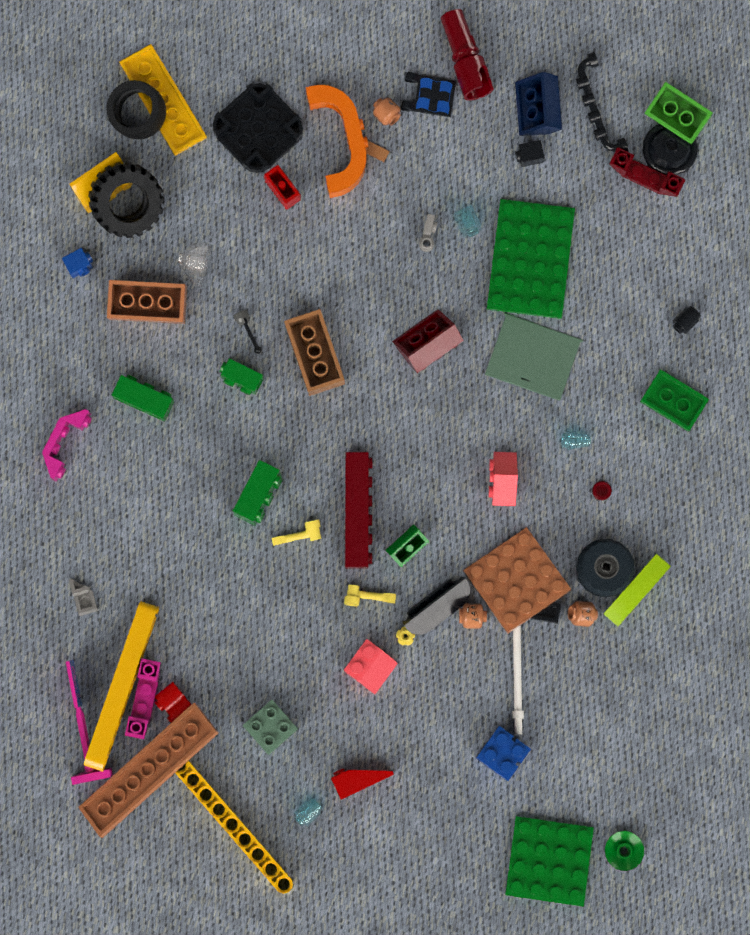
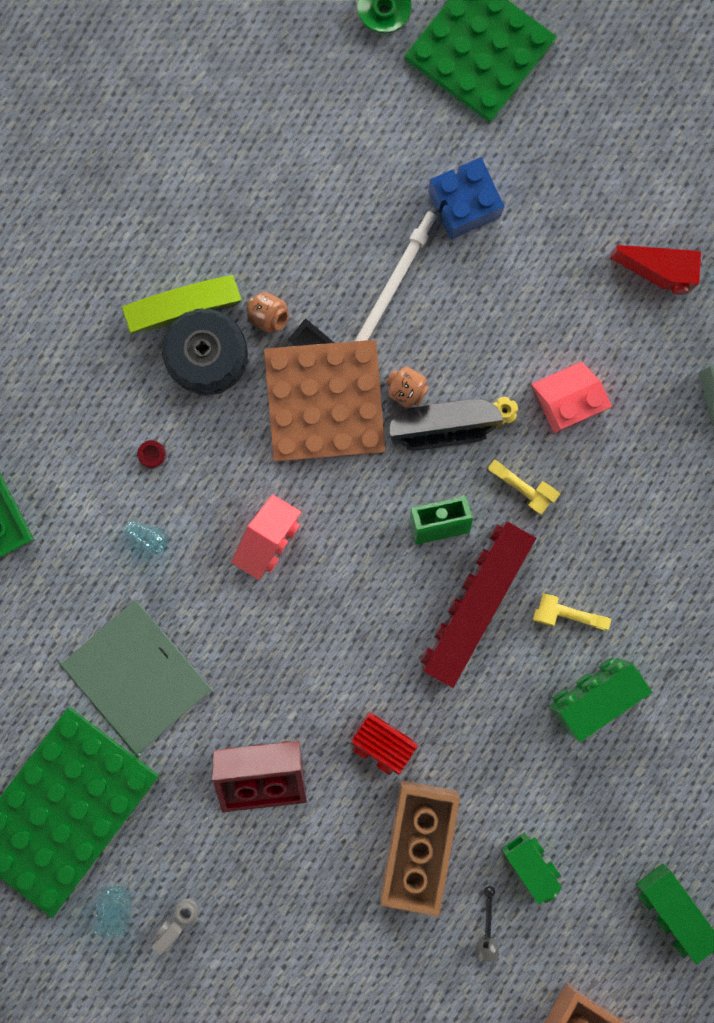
camera: 155 degrees left, 5 degrees up
(367, 399) = (383, 744): none -> red brick

